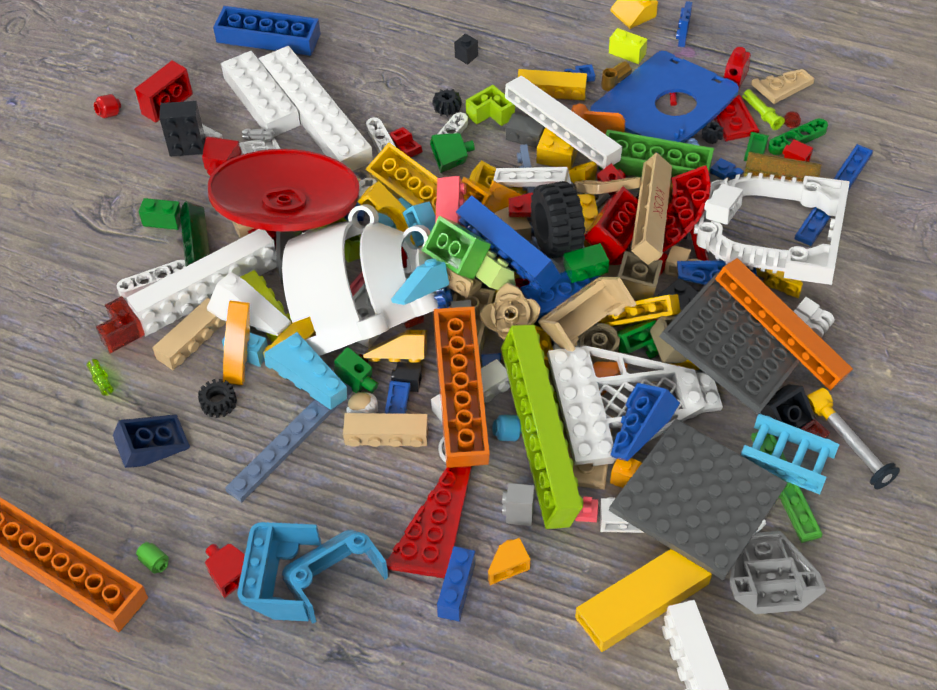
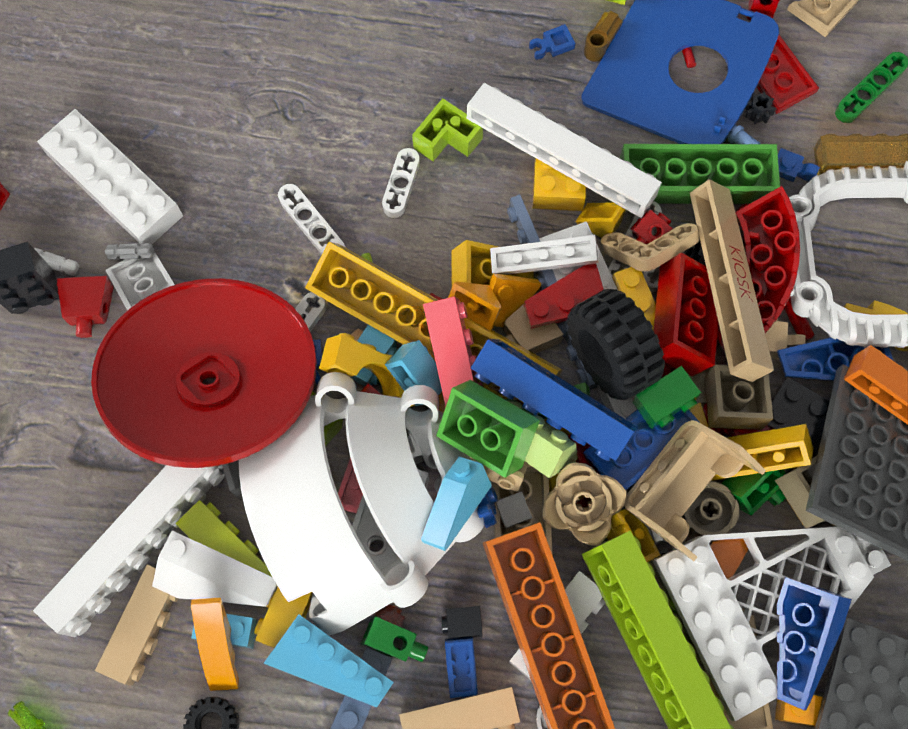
camera: 15 degrees left, 20 degrees up
(121, 327) = (39, 643): clear red brick -> none
(151, 275) = (58, 541): white beam -> none
(160, 213) = (32, 427): green brick -> none
(194, 232) = (95, 459): dark green beam -> none
(266, 30) = (85, 62): blue brick -> none
(317, 110) = (200, 190): white brick -> none
(362, 403) = (415, 685): hair -> none
(404, 142) = (342, 217): red slope -> none
(406, 345) = (451, 585): yellow slope -> none
(447, 102) = (373, 130): black gear -> none
(450, 150) = (412, 222): green torso -> none
(466, 48) = (382, 33): black brick -> none
(488, 358) = (567, 565): blue tile -> none
(507, 428) = (621, 674): dark azure head -> none
(524, 130) = (504, 162): dark grey brick -> none
(558, 84) = (521, 70): yellow brick -> none
(601, 120) = (614, 126): orange piece -> none
(724, 203) = (824, 248): white brick -> none
(756, 144) = (820, 116): green tile -> none
(767, 113) = (823, 57): lime pin -> none
(792, 119) = (857, 55): clear red plate -> none
(798, 151) = (881, 119): red brick -> none

